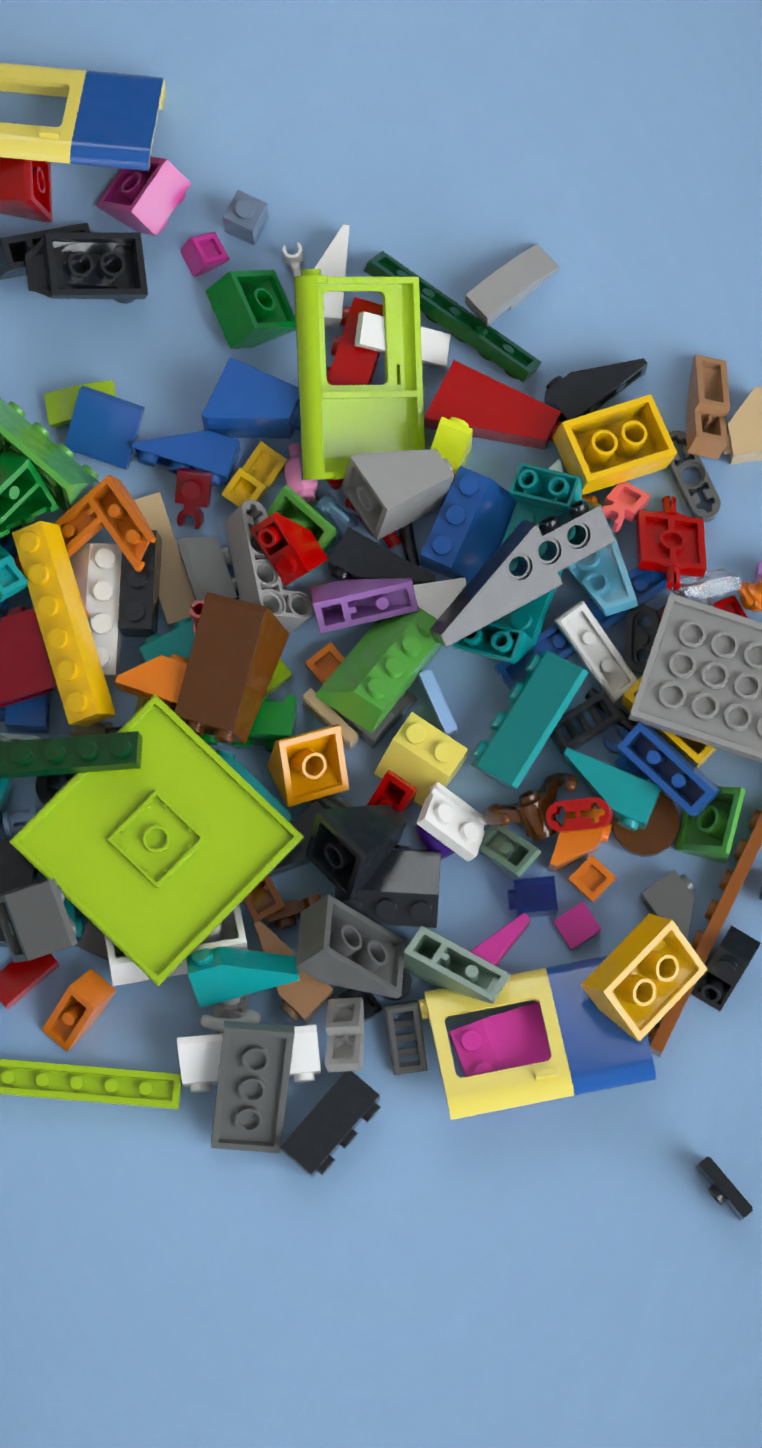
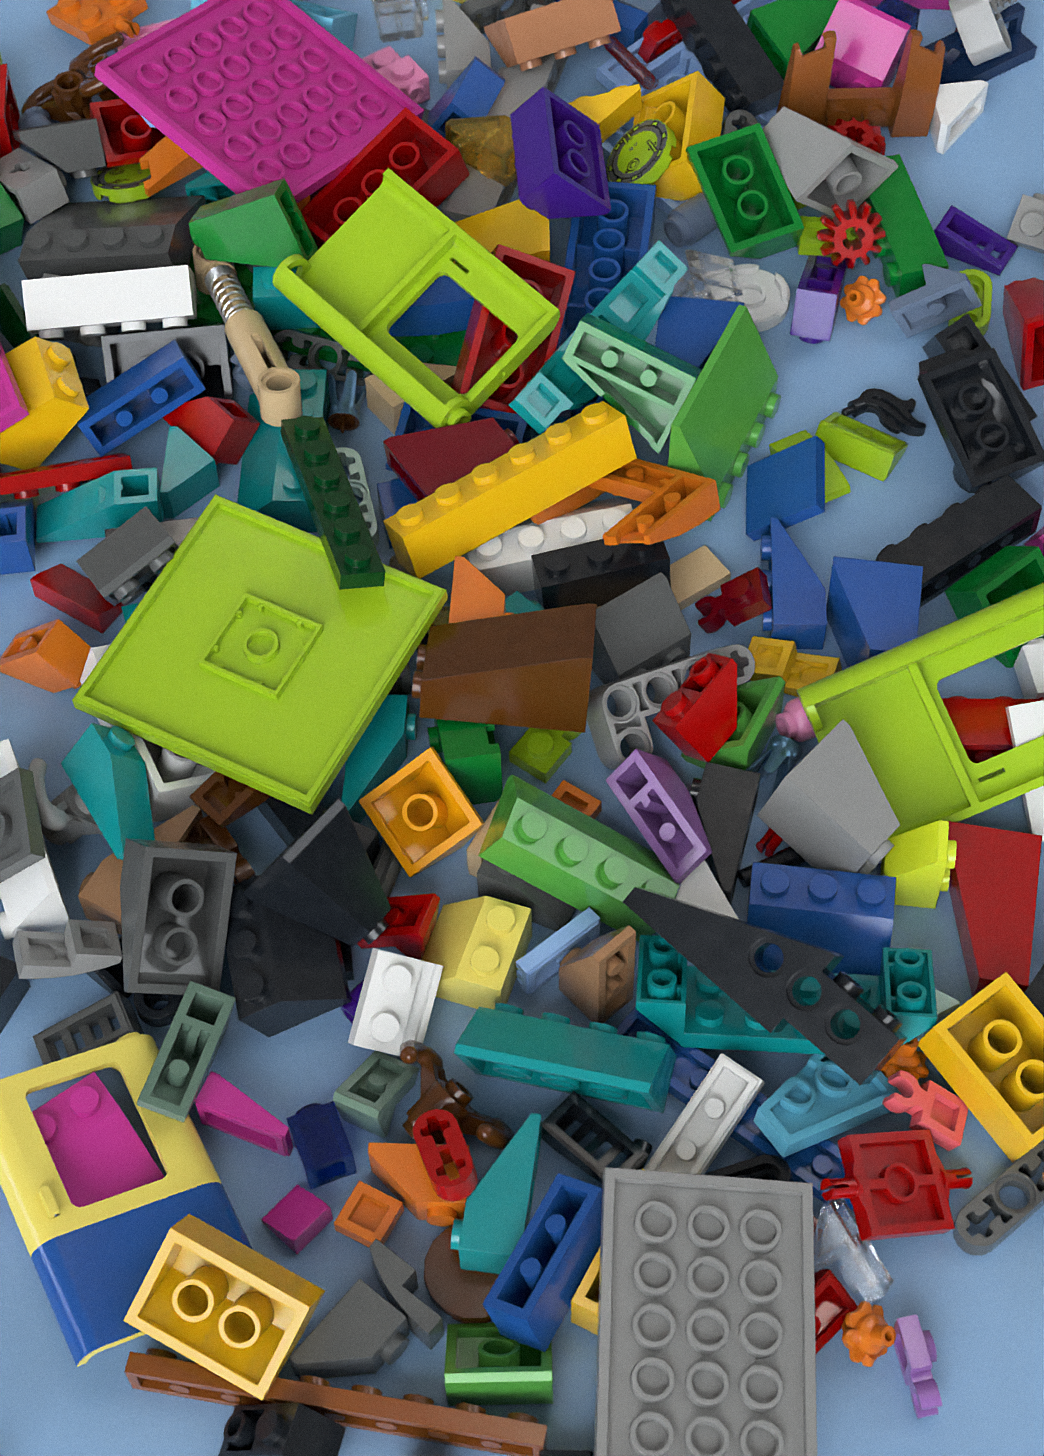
camera: 75 degrees right, 20 degrees down
(42, 325) = (891, 411): none -> black piece
(68, 359) = (860, 445): none -> lime slope
(187, 322) = (967, 535): none -> black brick
(470, 681) = (600, 974): none -> medium nougat slope
(643, 871) = (398, 1284): none -> dark grey slope

